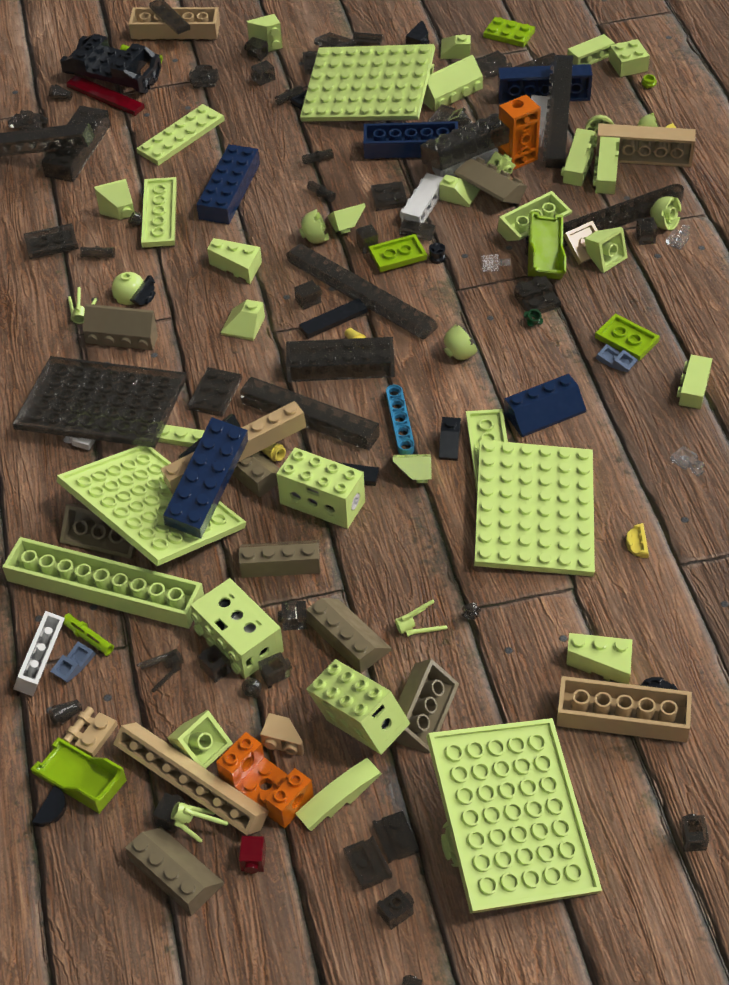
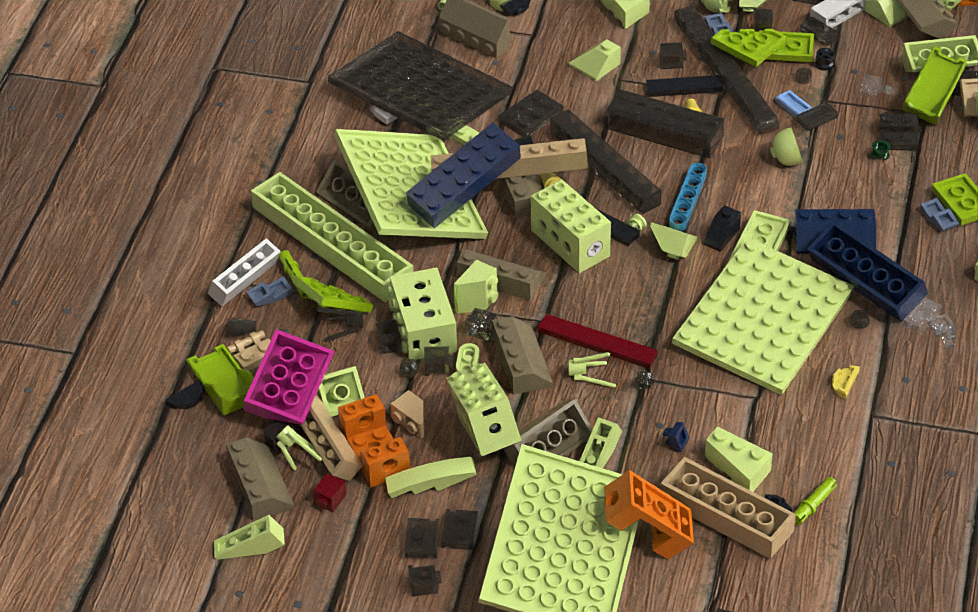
camera: 25 degrees right, 5 degrees down
(138, 644) = (331, 295): none -> lime plate
(154, 753) = (287, 379): none -> dark pink slope
(203, 942) = (253, 539): none -> yellowish green slope
(272, 581) = (476, 288): none -> yellowish green slope
(302, 659) = (467, 357): none -> yellowish green plate
(334, 255) = (717, 22): none -> sand blue slope
(371, 262) = (749, 45): none -> lime plate
(372, 460) = (637, 222): none -> yellowish green bush
(405, 589) = (598, 340): none -> dark red tile
(428, 273) = (804, 75): none -> clear smoke bush
(436, 303) = (792, 103): none -> light blue tile
(462, 306) = (816, 116): none -> clear smoke plate
(474, 698) = (601, 443): none -> yellowish green slope
(533, 656) = (677, 436): none -> dark blue tile
(571, 745) = (635, 498): none -> orange plate
(599, 431) = (868, 271): none -> dark blue brick
(614, 478) = (859, 319): none -> clear smoke plate
(661, 454) = (918, 318): none -> clear plate
(687, 674) = (808, 506): none -> lime pin

